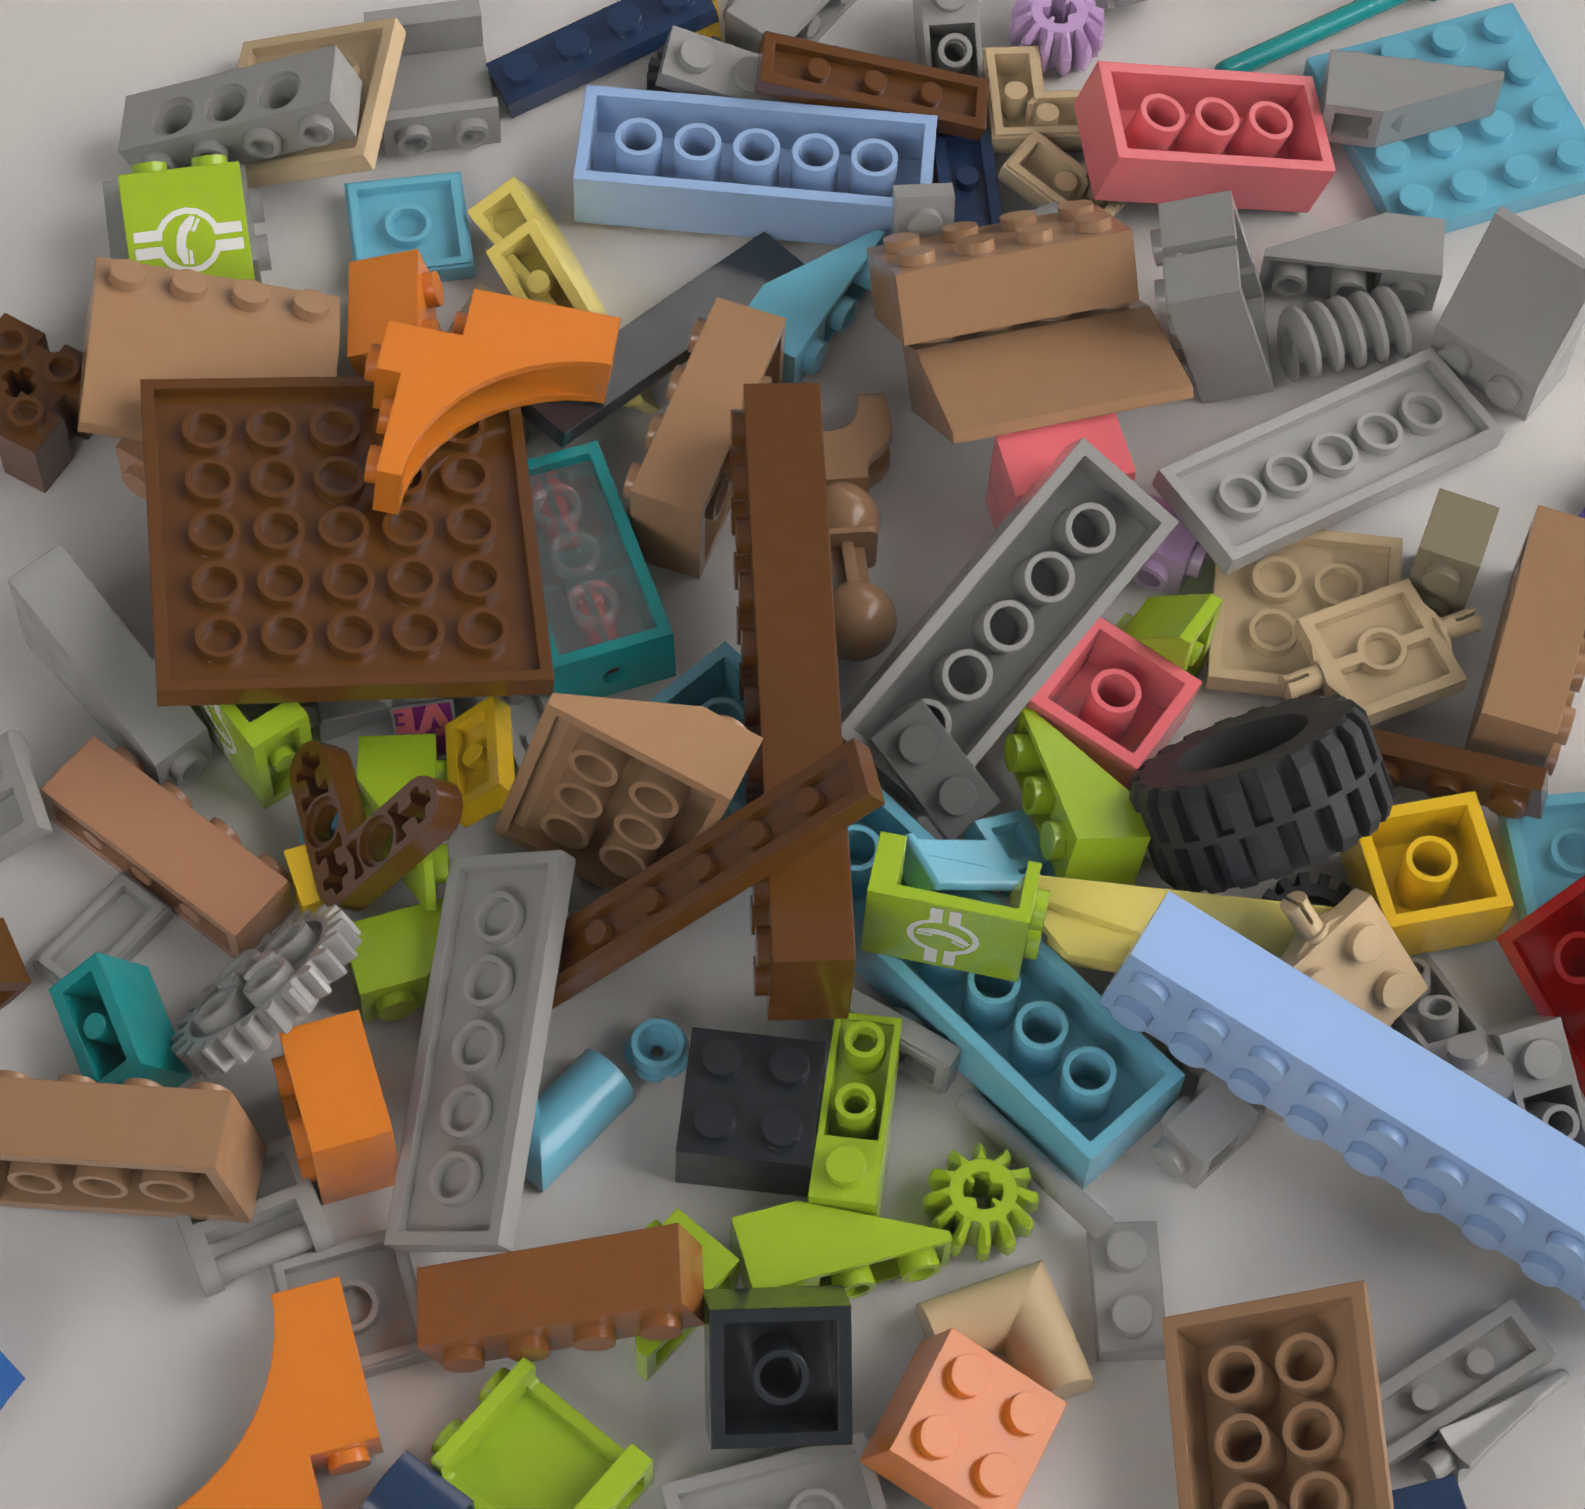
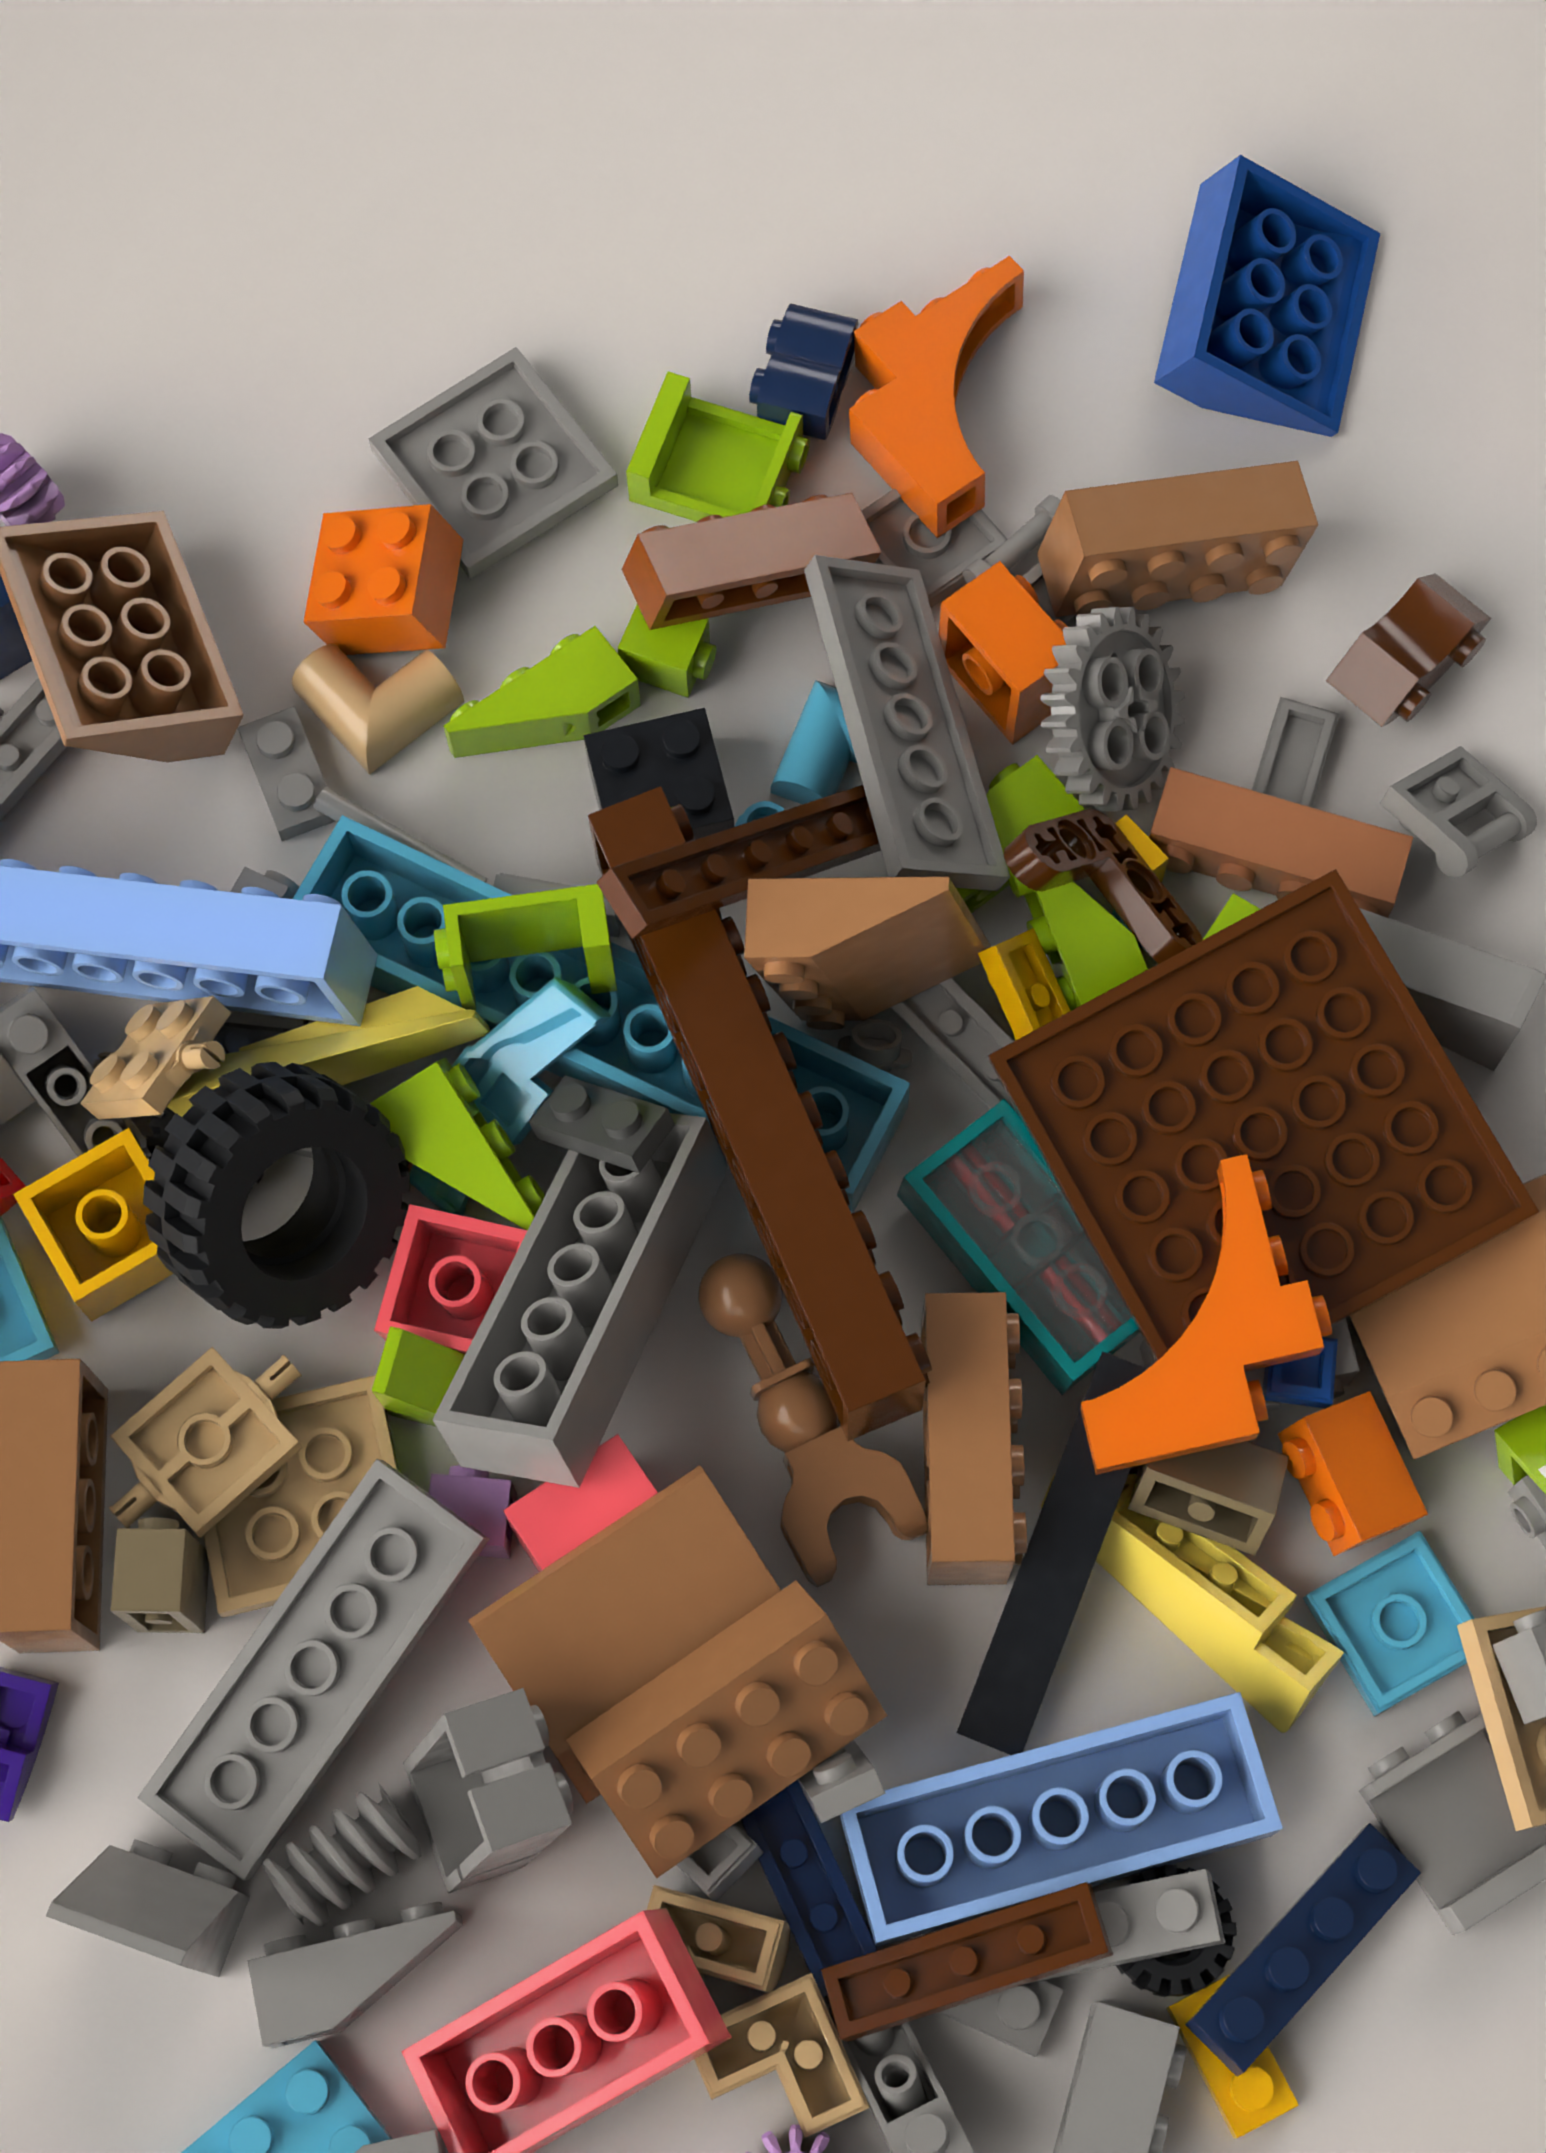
camera: 165 degrees right, 10 degrees up
(117, 1022) = (1228, 659): teal brick -> none
(778, 1367) = (553, 571): black brick -> none
(818, 303) = (941, 1651): medium azure slope -> none
(856, 1114) = (559, 796): lime slope -> none
(1003, 1194) = (456, 778): lime gear -> none
(1442, 770) = (116, 1336): reddish brown plate -> none

